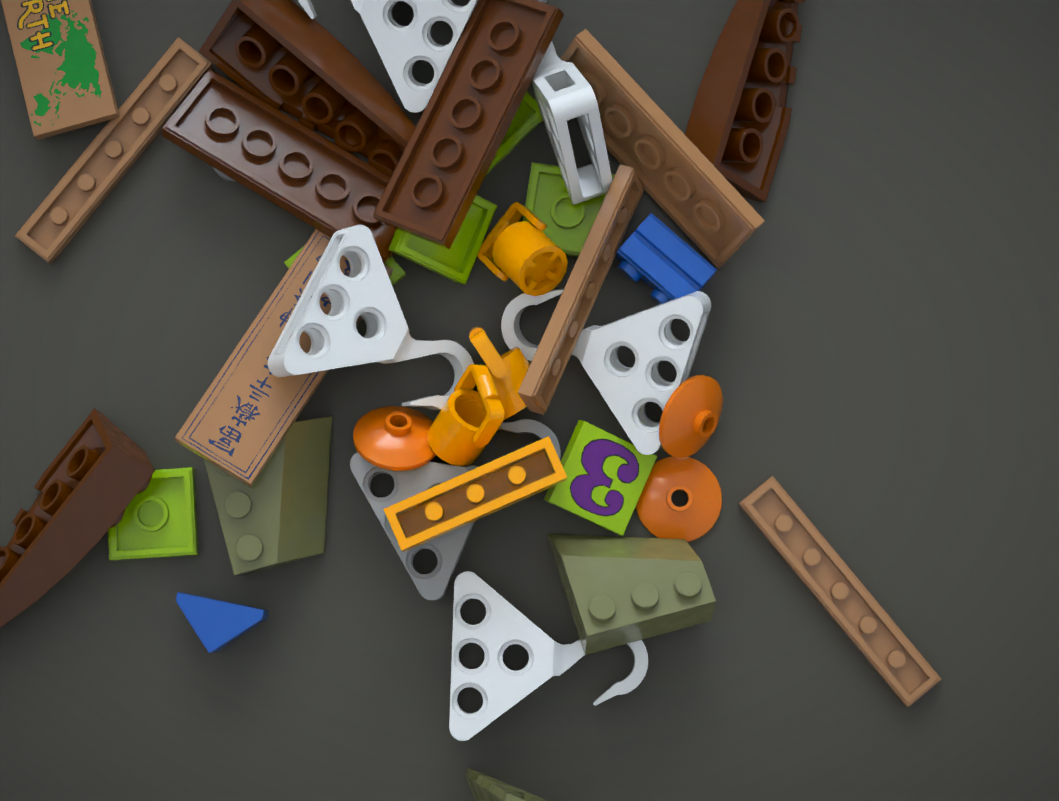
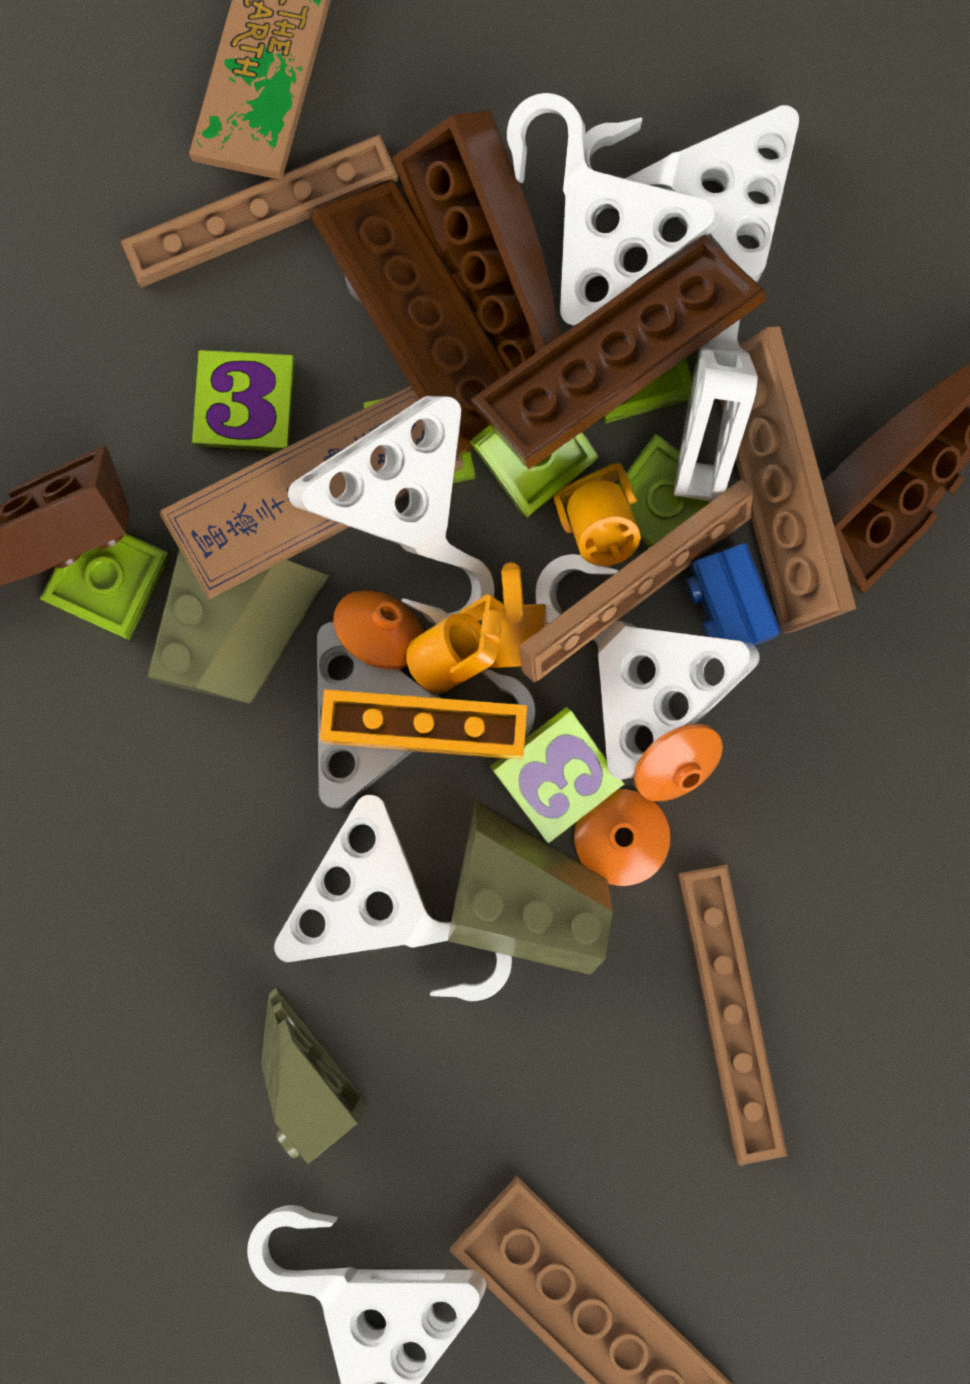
camera: 25 degrees right, 0 degrees up
(185, 312) = (243, 400): none -> lime tile
(218, 621) = (110, 714): blue slope -> none

